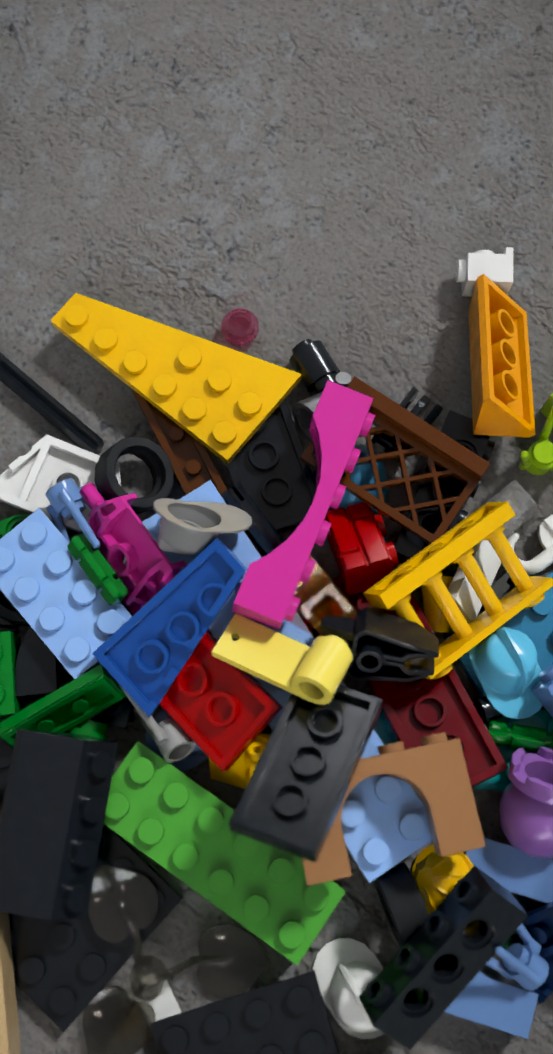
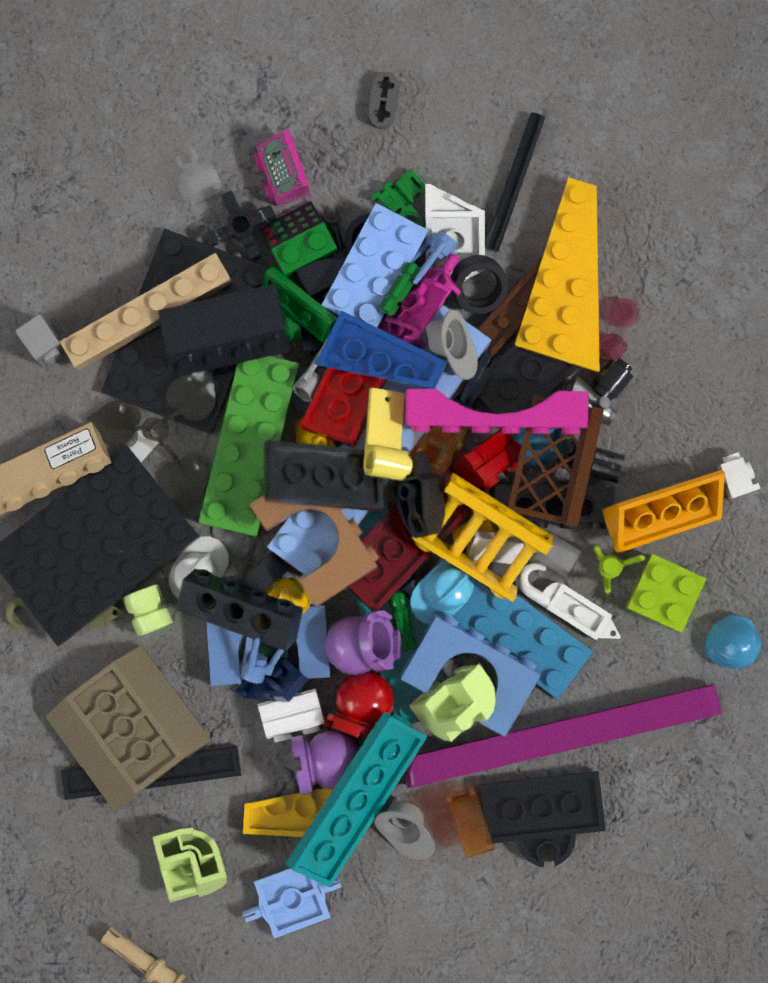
camera: 75 degrees right, 10 degrees up
(276, 351) = (612, 346): none -> clear pink plate

